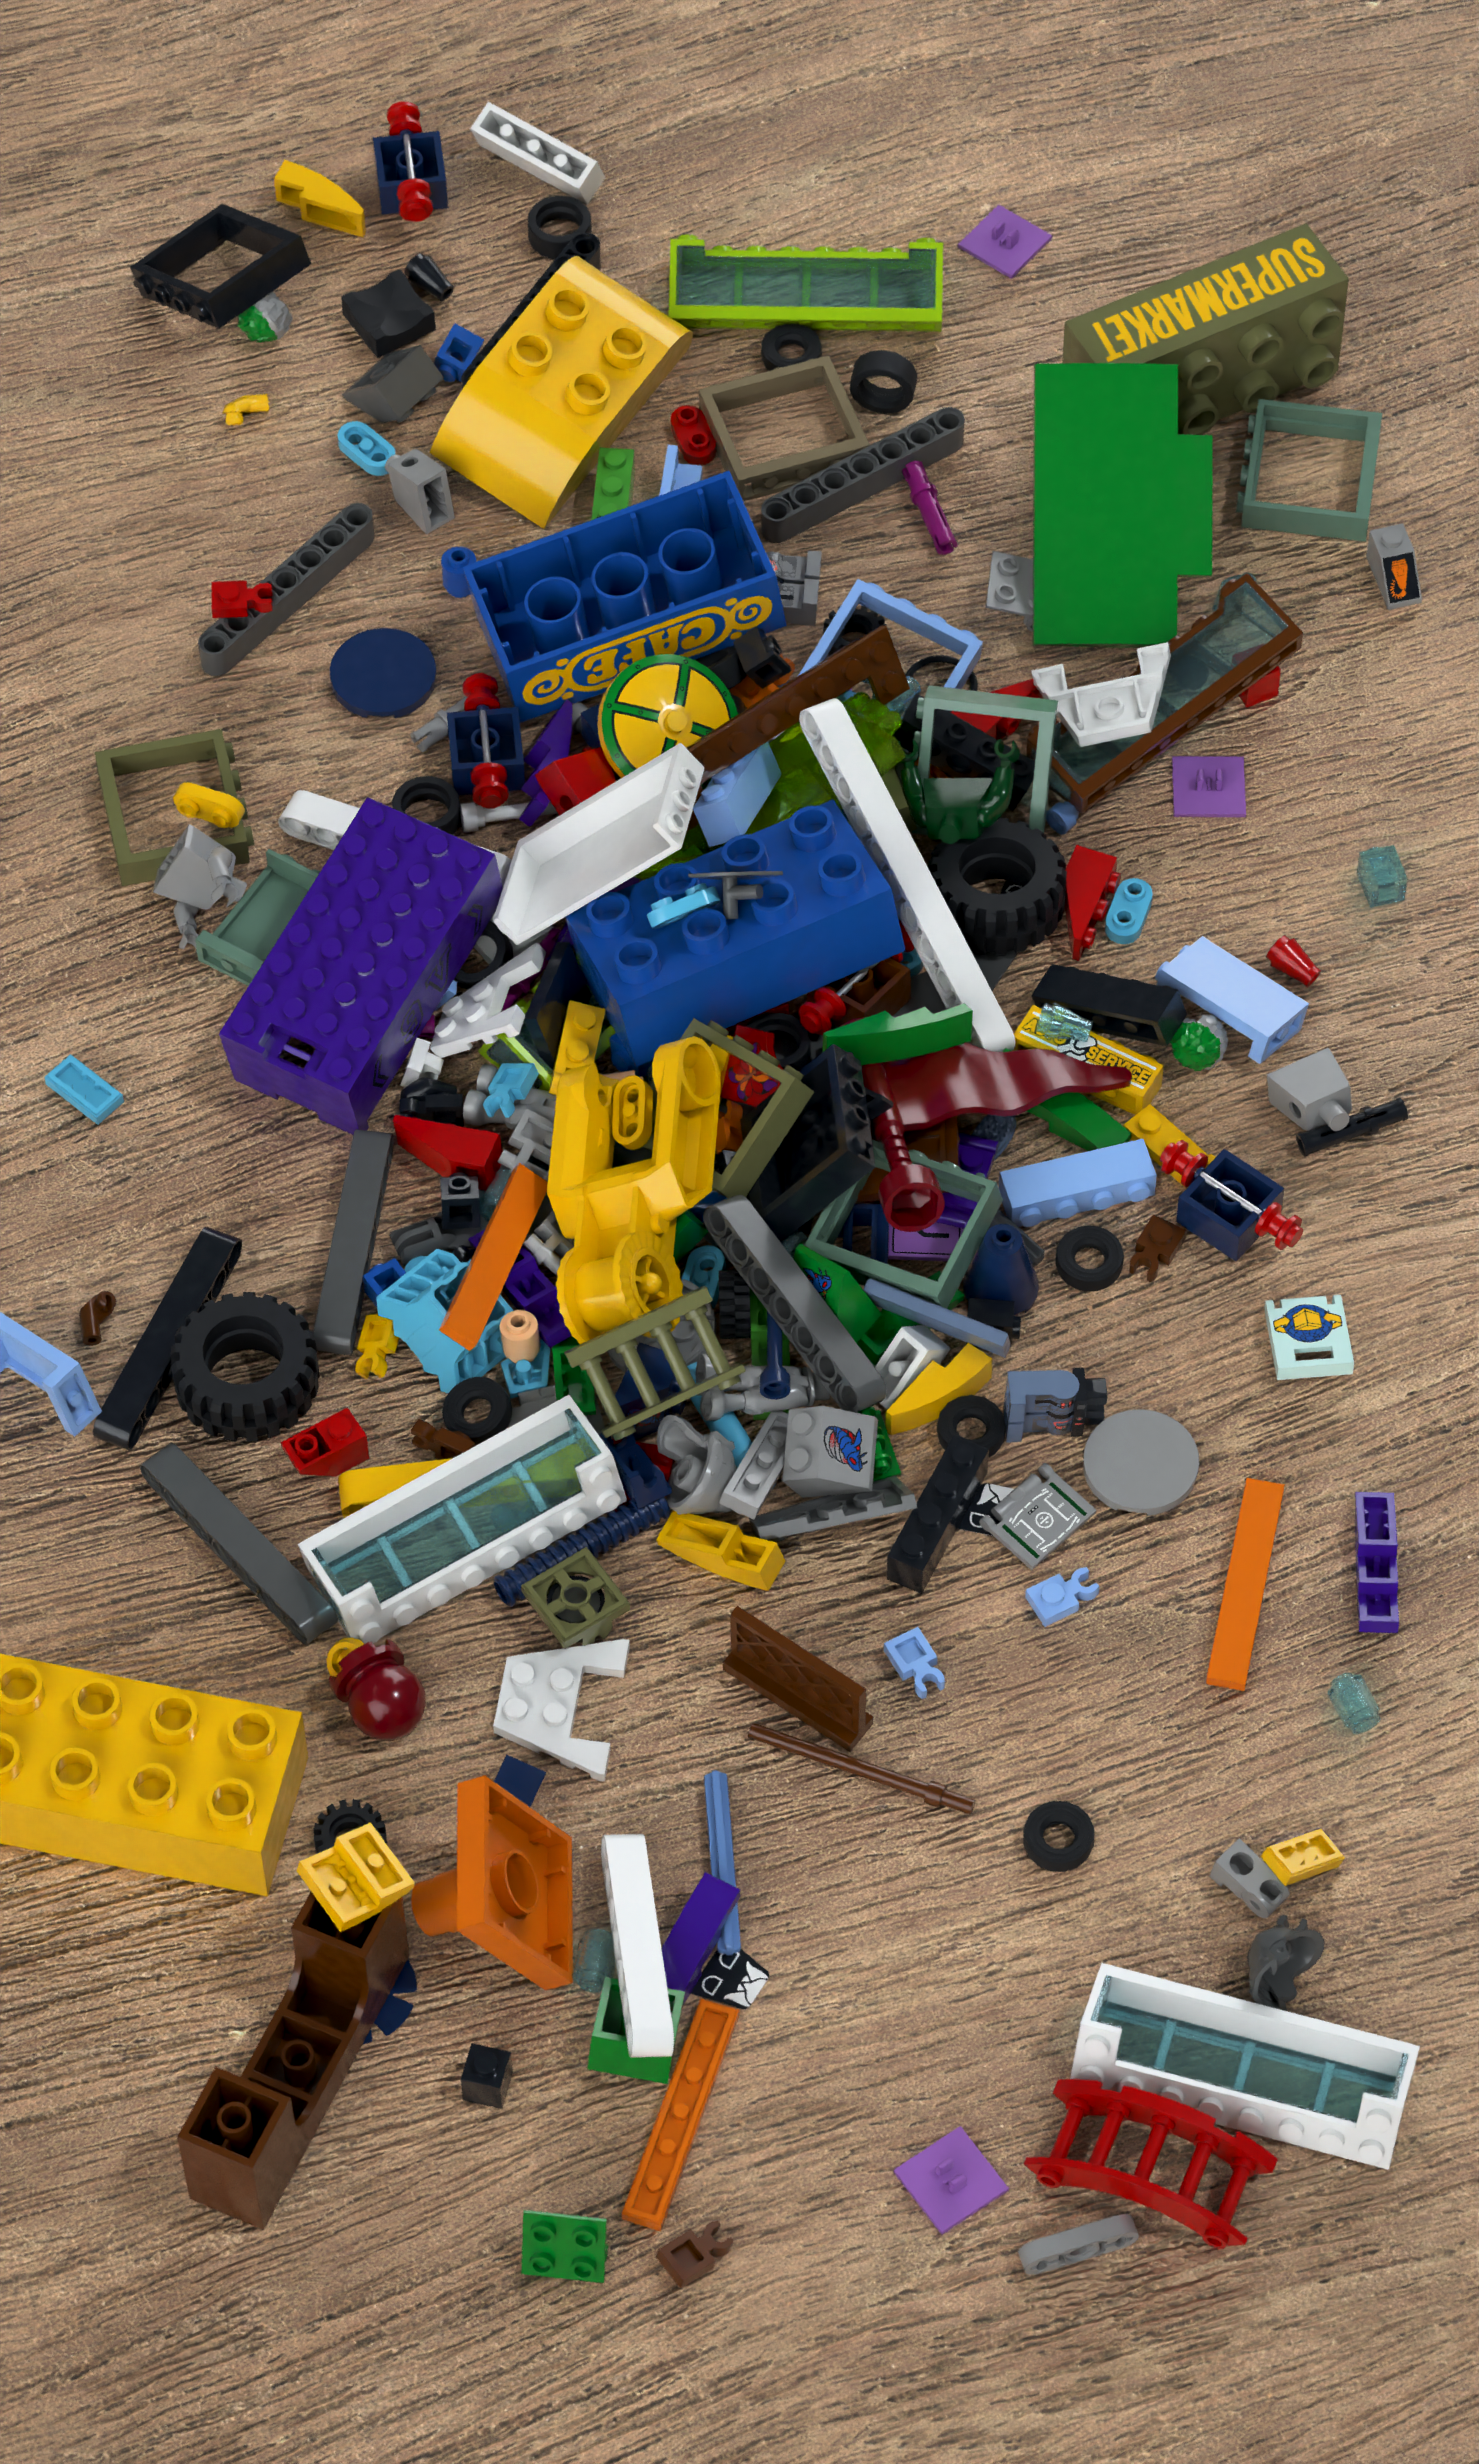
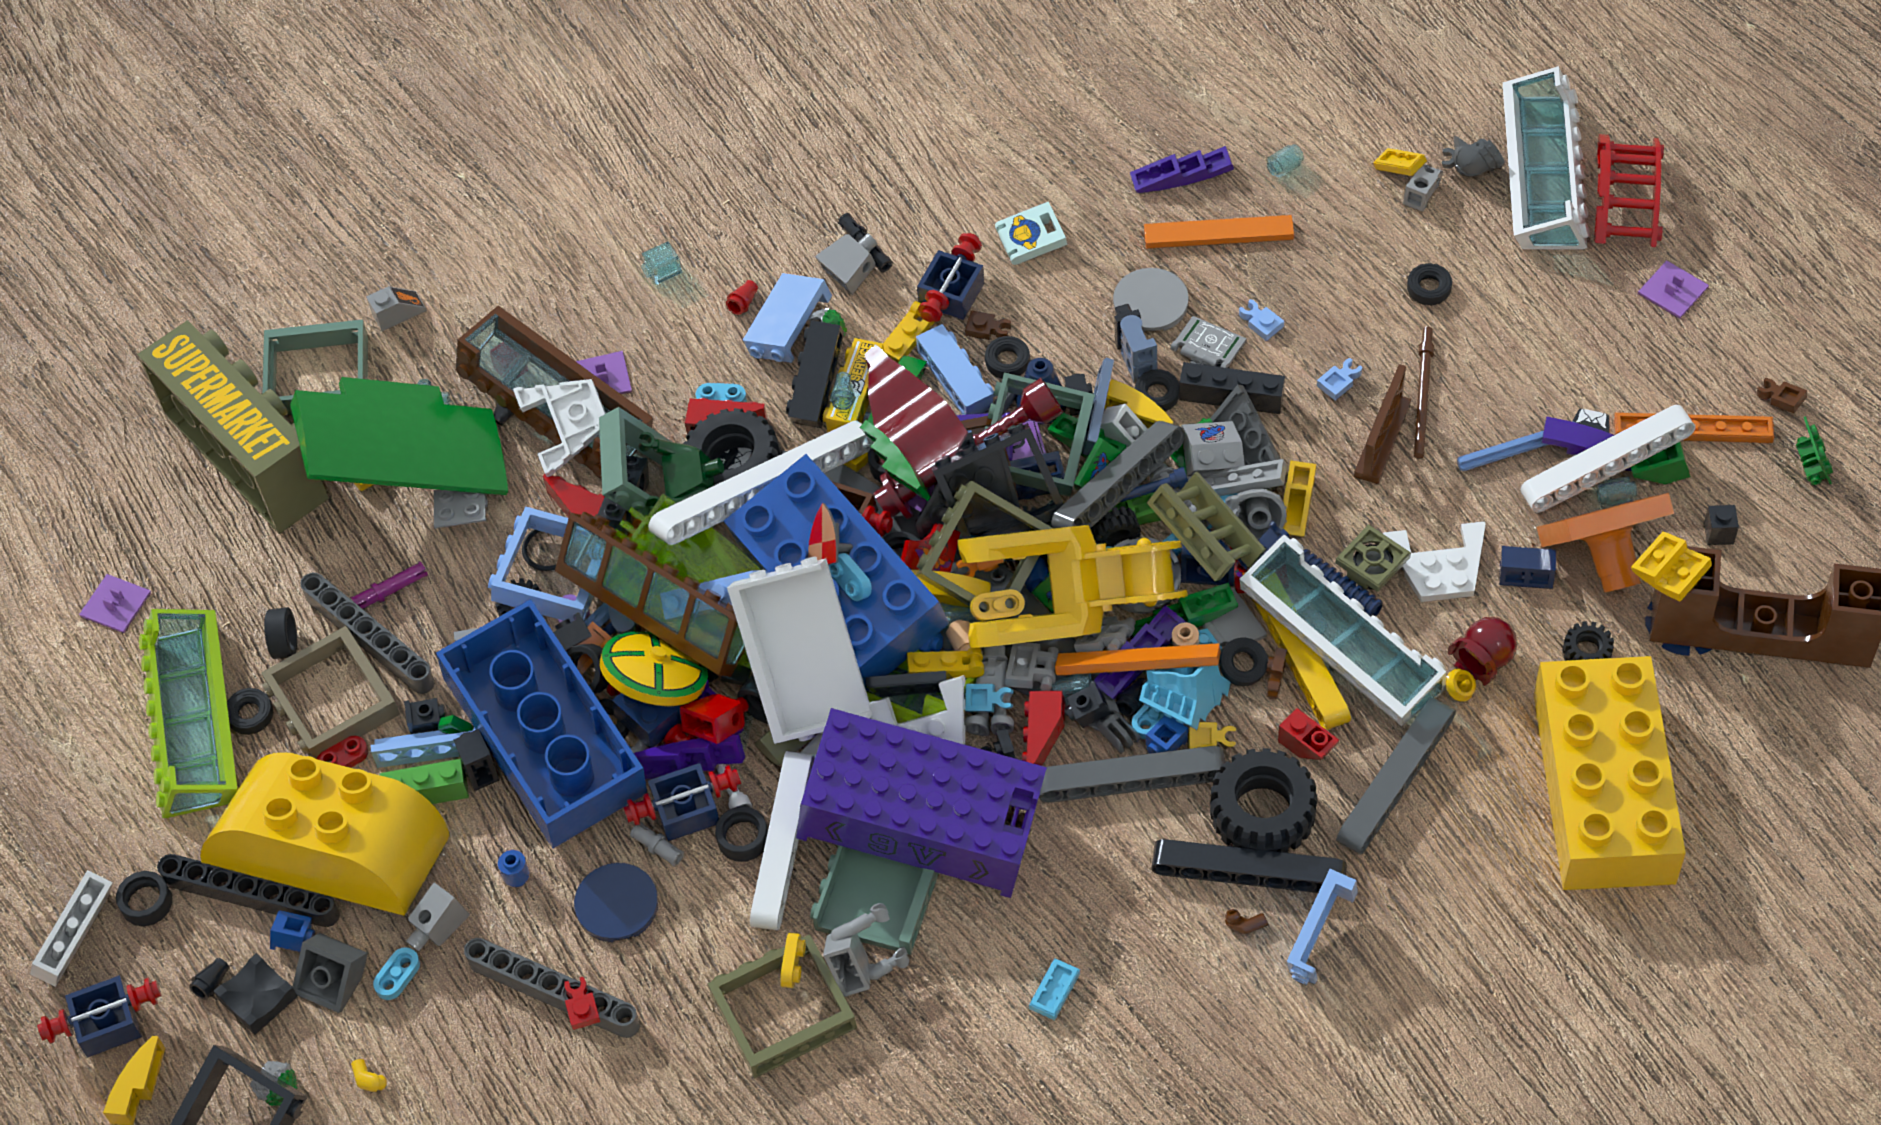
camera: 100 degrees left, 0 degrees up
(1078, 2244) = (1690, 216): light grey beam -> none

